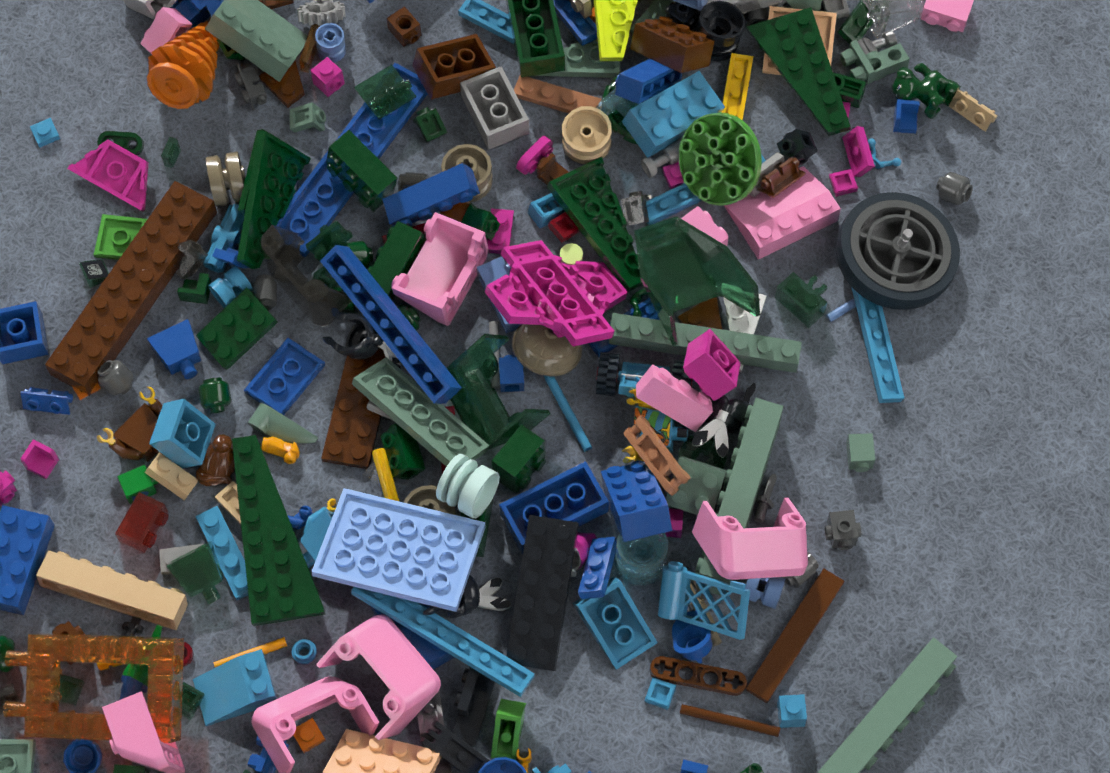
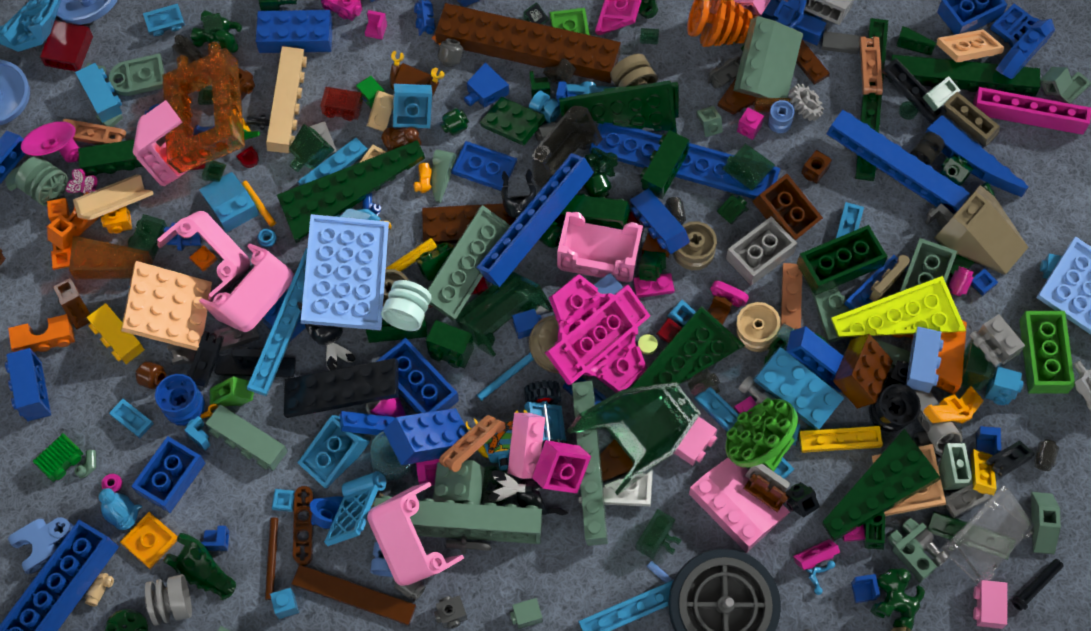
camera: 75 degrees right, 0 degrees up
(572, 720) = (246, 437): none -> sand green brick
(843, 182) = (784, 549): dark pink tile -> none

